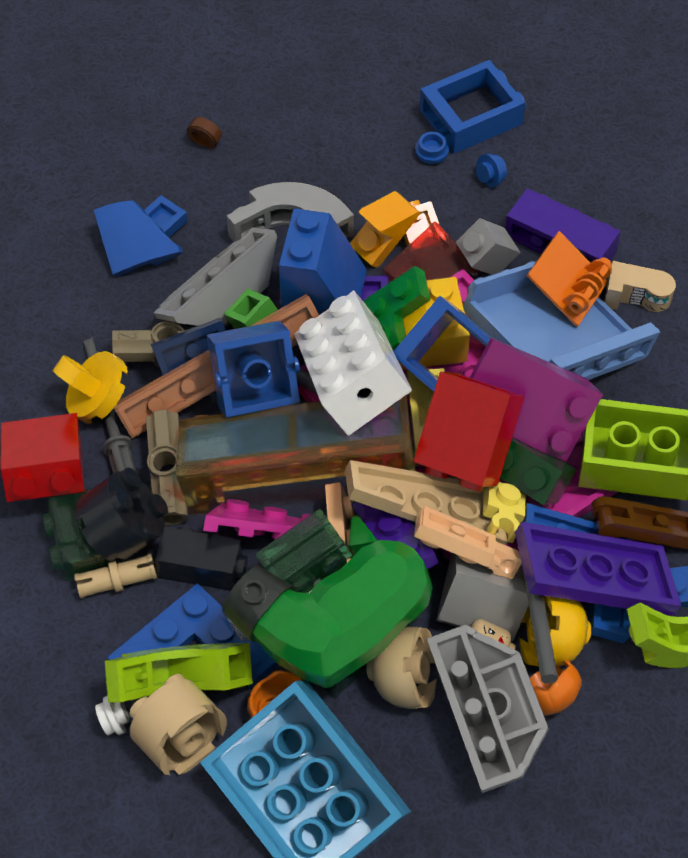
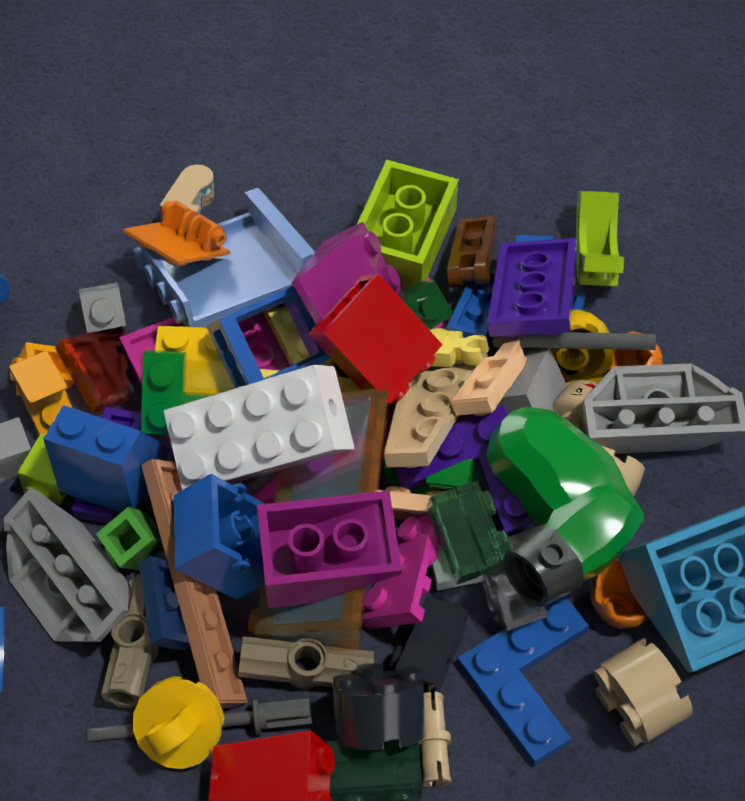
camera: 80 degrees left, 0 degrees up
(112, 716) = (609, 763): white plate -> none
(206, 665) = (567, 679): lime arch -> none
(239, 425) = (326, 546): none -> magenta slope
(538, 218) = (95, 245): dark purple brick -> none

